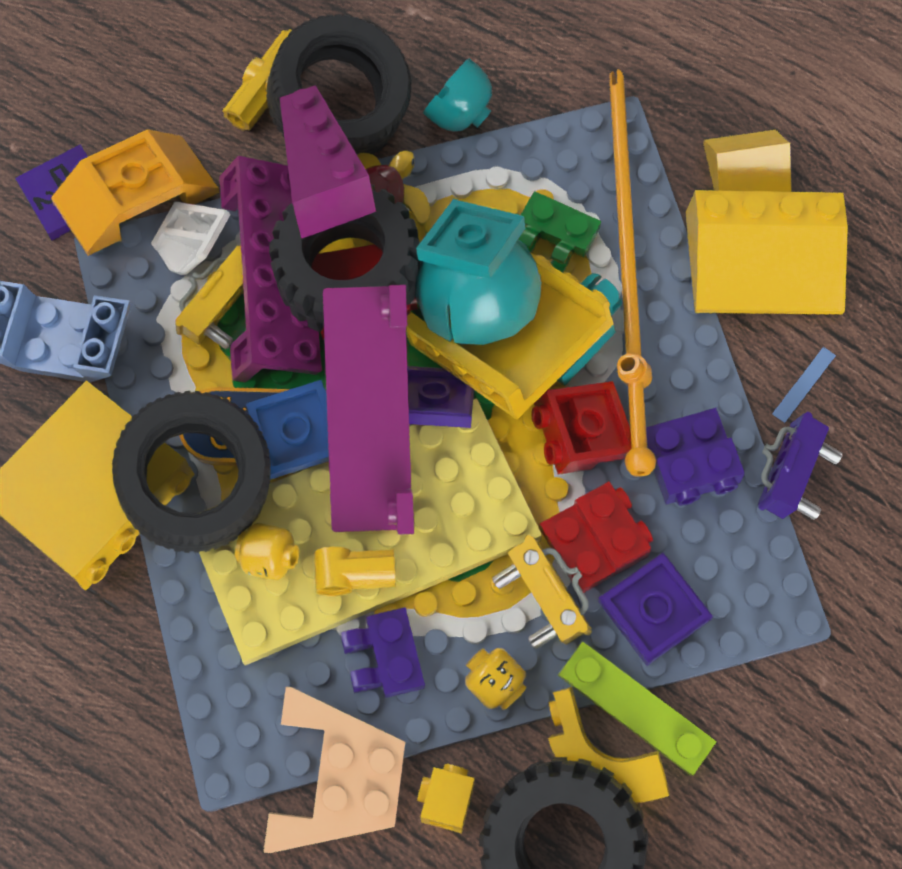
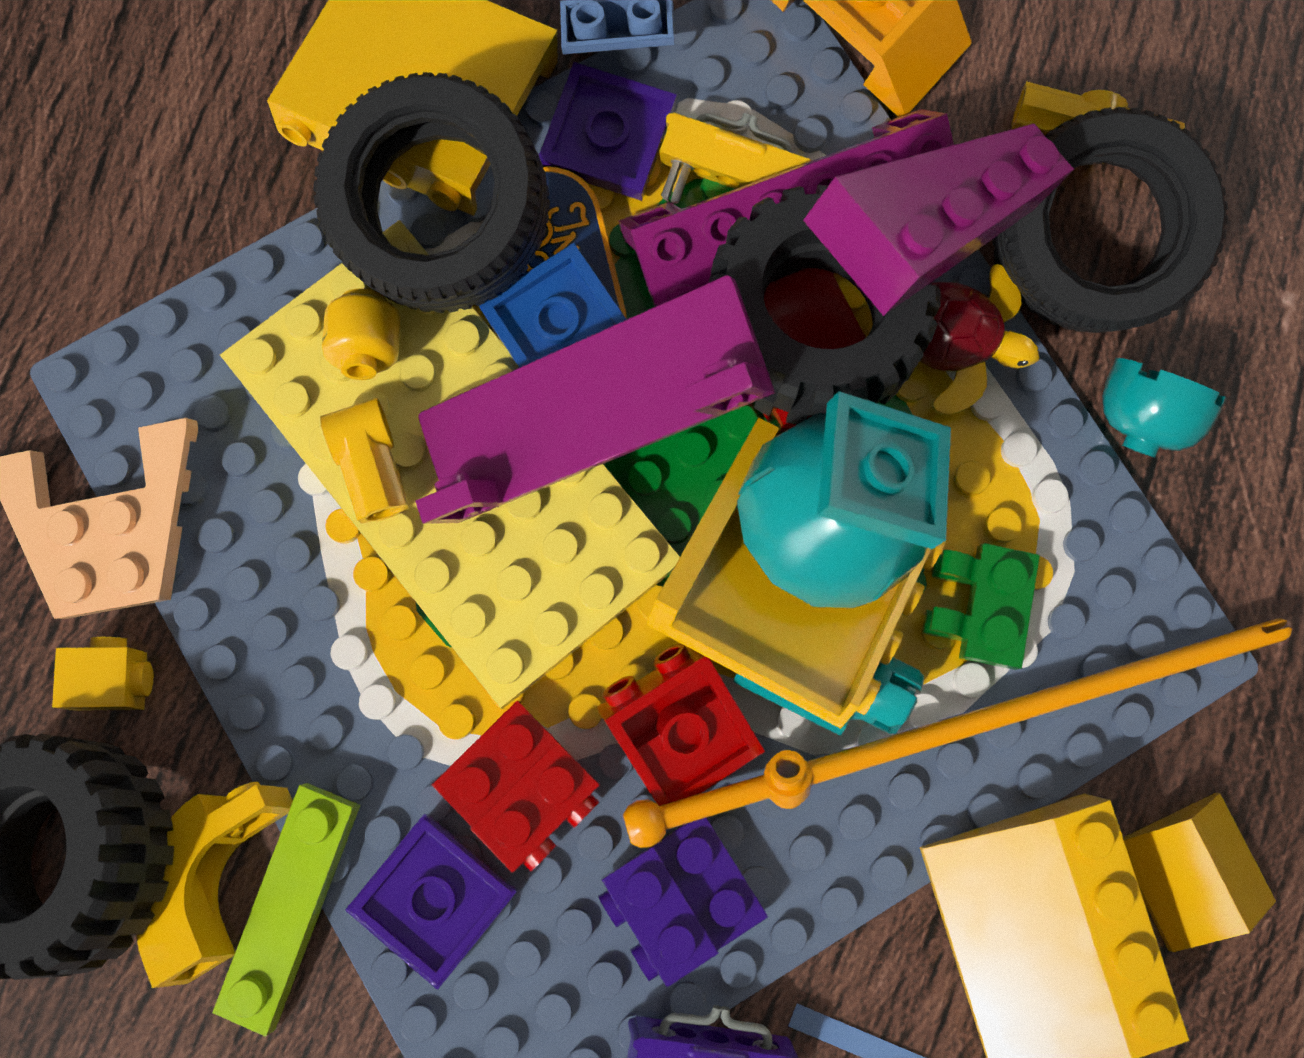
camera: 70 degrees right, 10 degrees up
(165, 365) = (608, 130): none -> dark purple tile
(188, 235) = (813, 93): white slope -> none
(394, 652) = (283, 550): dark purple plate -> none
(438, 398) = (658, 497): dark purple plate -> none
(495, 678) = (271, 698): yellow head -> none
(548, 590) = (417, 740): yellow piece -> none

